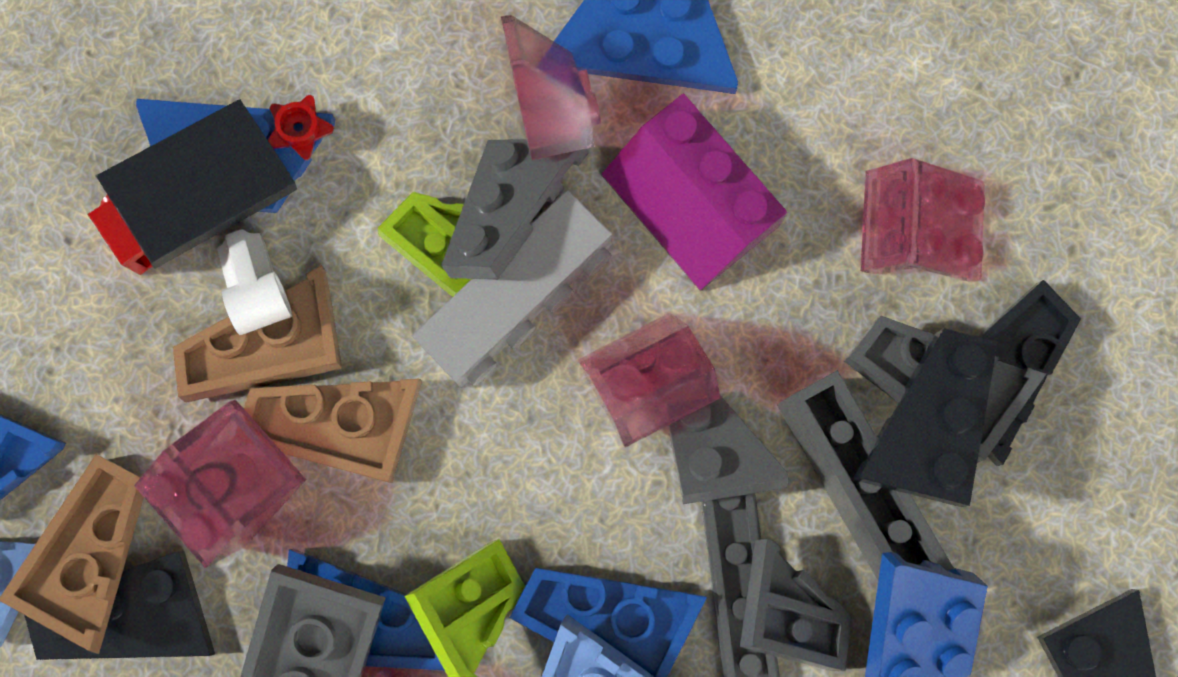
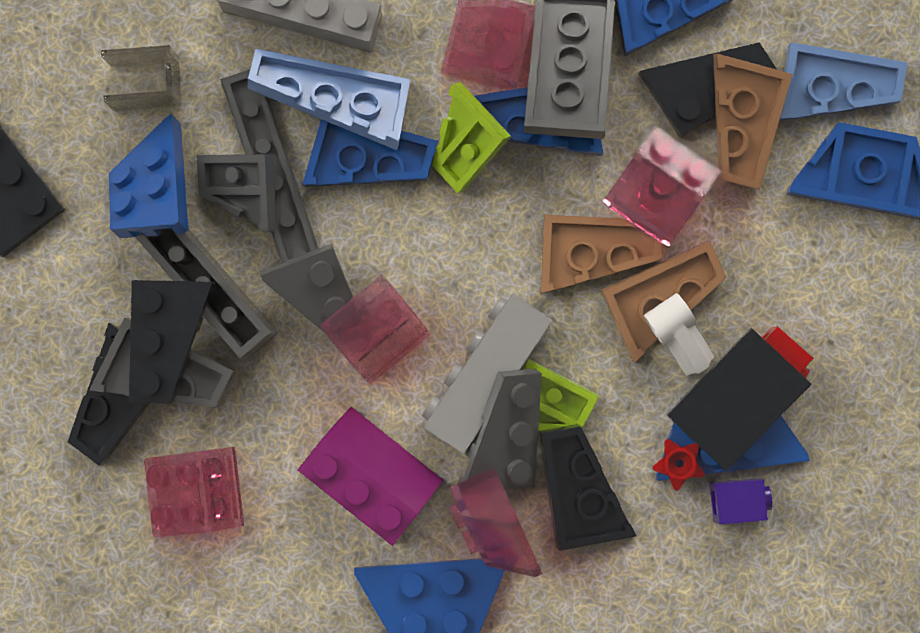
camera: 165 degrees right, 5 degrees up
(236, 66) = (740, 500): none -> dark purple brick
(433, 119) = (579, 495): none -> black wing

